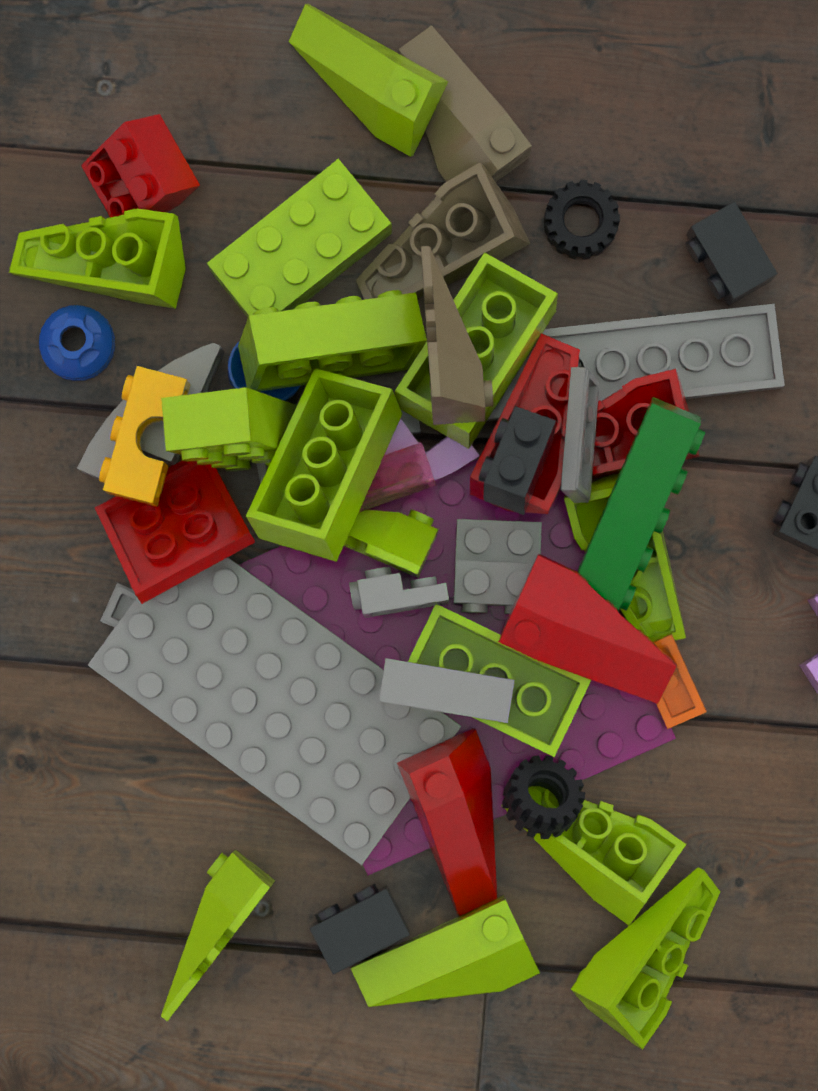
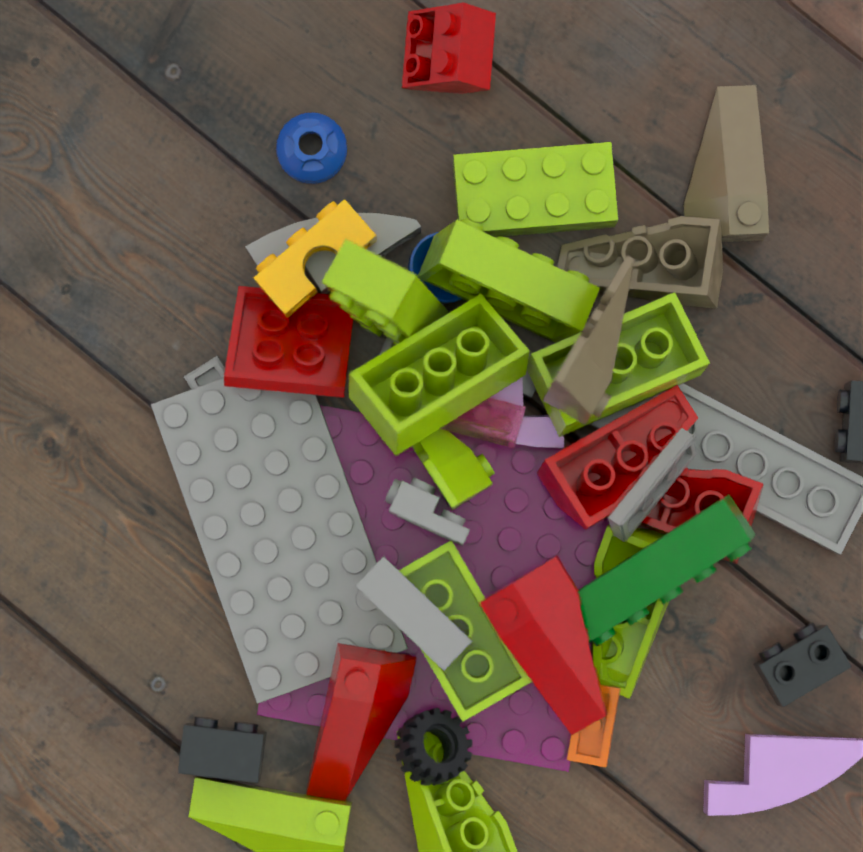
camera: 30 degrees right, 0 degrees up
(117, 256) = (390, 104): lime wedge -> none
(226, 903) = (128, 664): lime wedge -> none
(375, 82) = (681, 102): lime wedge -> none
(493, 562) = (519, 537): light grey plate -> none
(518, 460) = (591, 472): black brick -> none
(586, 194) = (793, 309): black tyre -> none

